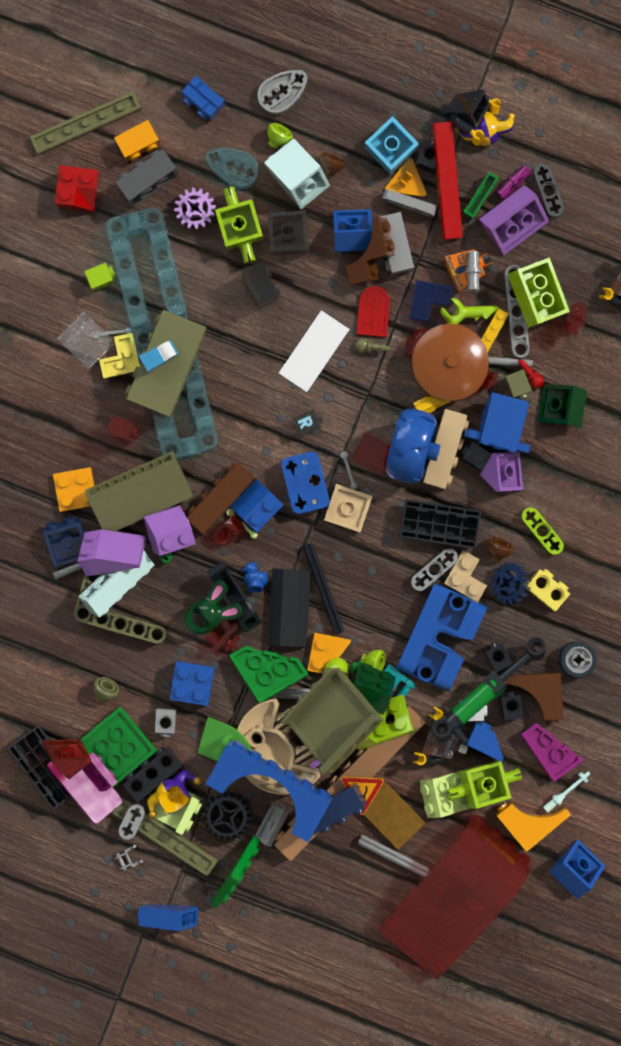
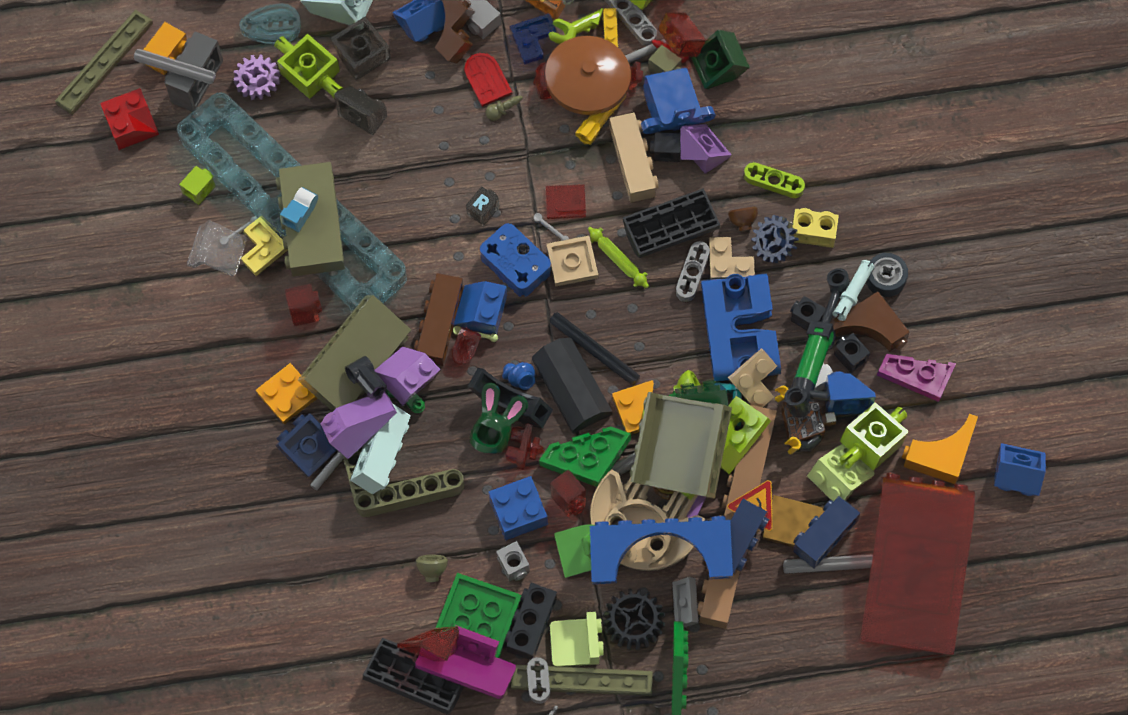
camera: 25 degrees left, 20 degrees down
(129, 173) = (174, 66): none -> light grey axle
(134, 516) = (363, 373): none -> black piece
(172, 793) = (564, 626): yellow piece -> none
(234, 697) = (568, 494): none -> clear red brick
(314, 351) = (449, 142): white sticker -> none
(385, 526) = (618, 257): none -> lime wheel
(403, 835) = (825, 531): none -> dark blue brick
(412, 446) = (599, 160): blue wheel -> none
(421, 685) = (749, 376): none -> tan plate
(539, 664) = (849, 297): none -> light aqua pin
(544, 369) = (681, 34): none -> clear red brick
(557, 799) = (955, 416): light aqua piece -> none

